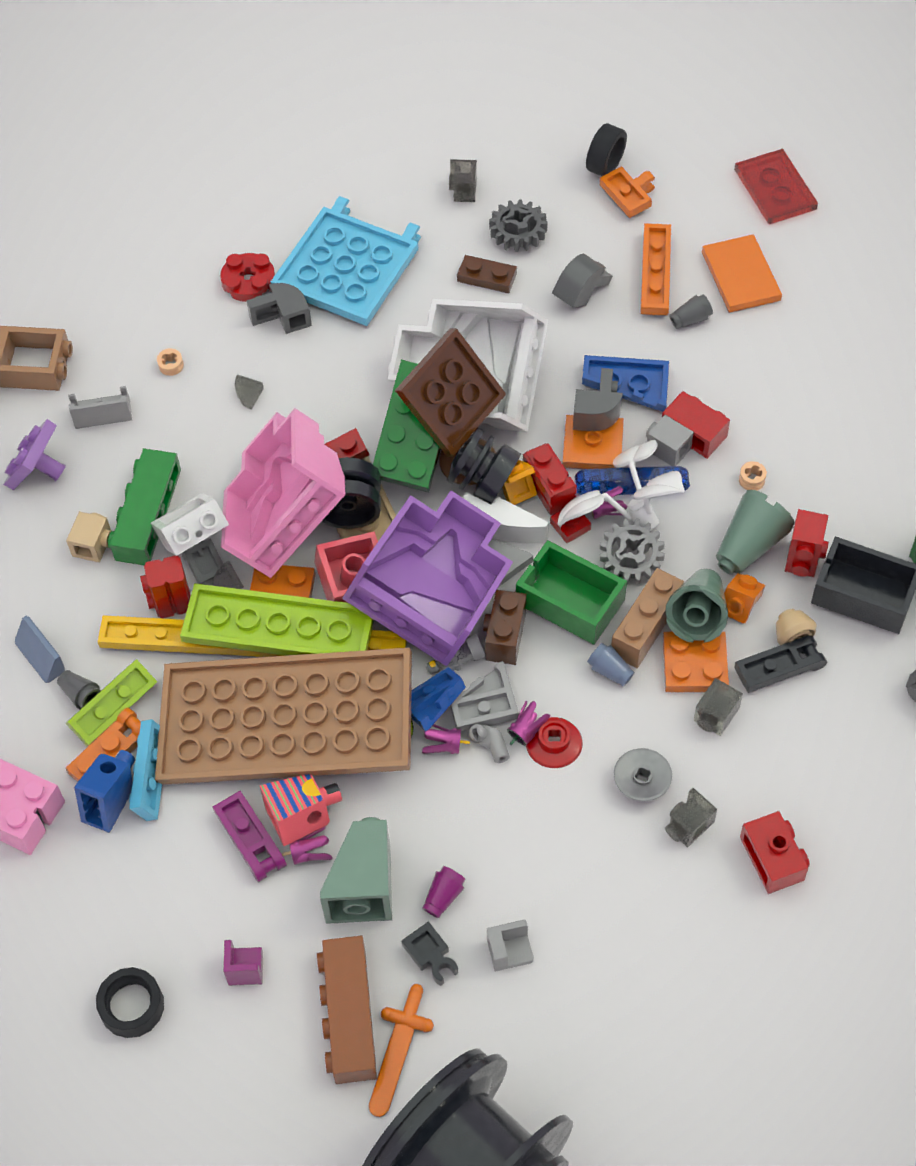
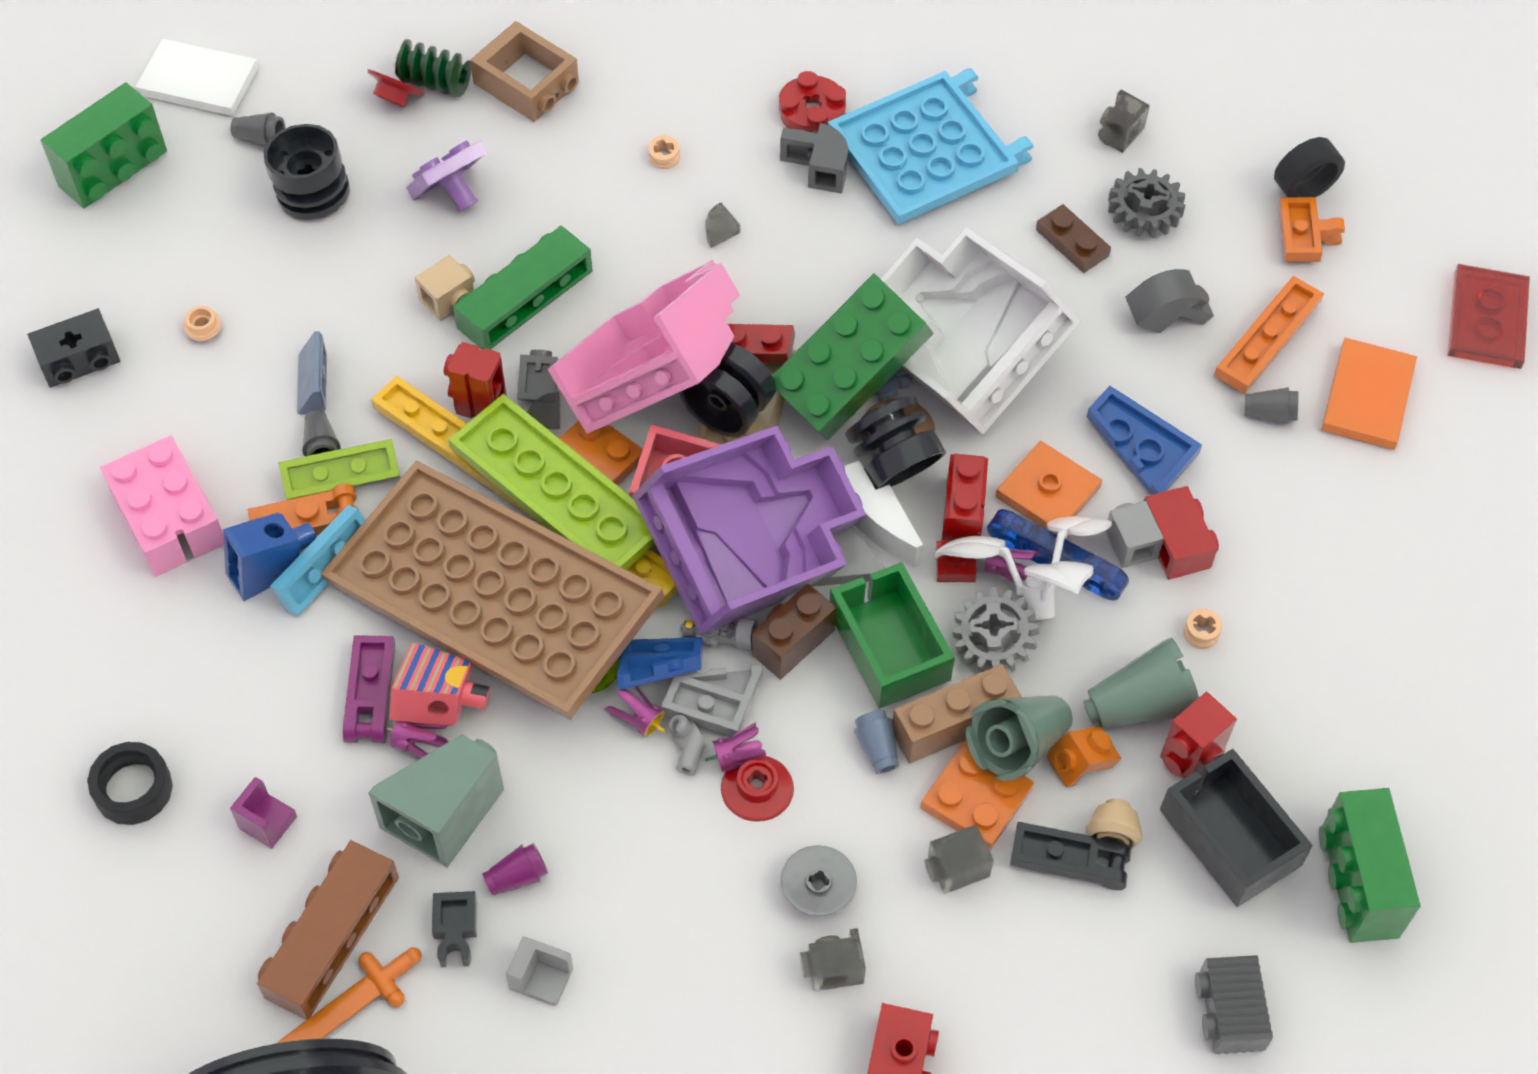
camera: 30 degrees right, 0 degrees up
(100, 410) = (556, 164): light grey hinge -> none
(179, 526) = (545, 325): white window -> none
(450, 392) = (901, 337): reddish brown plate -> none
(519, 484) = (926, 484): light orange bracket -> none
(598, 408) = (1075, 452): dark grey brick -> none

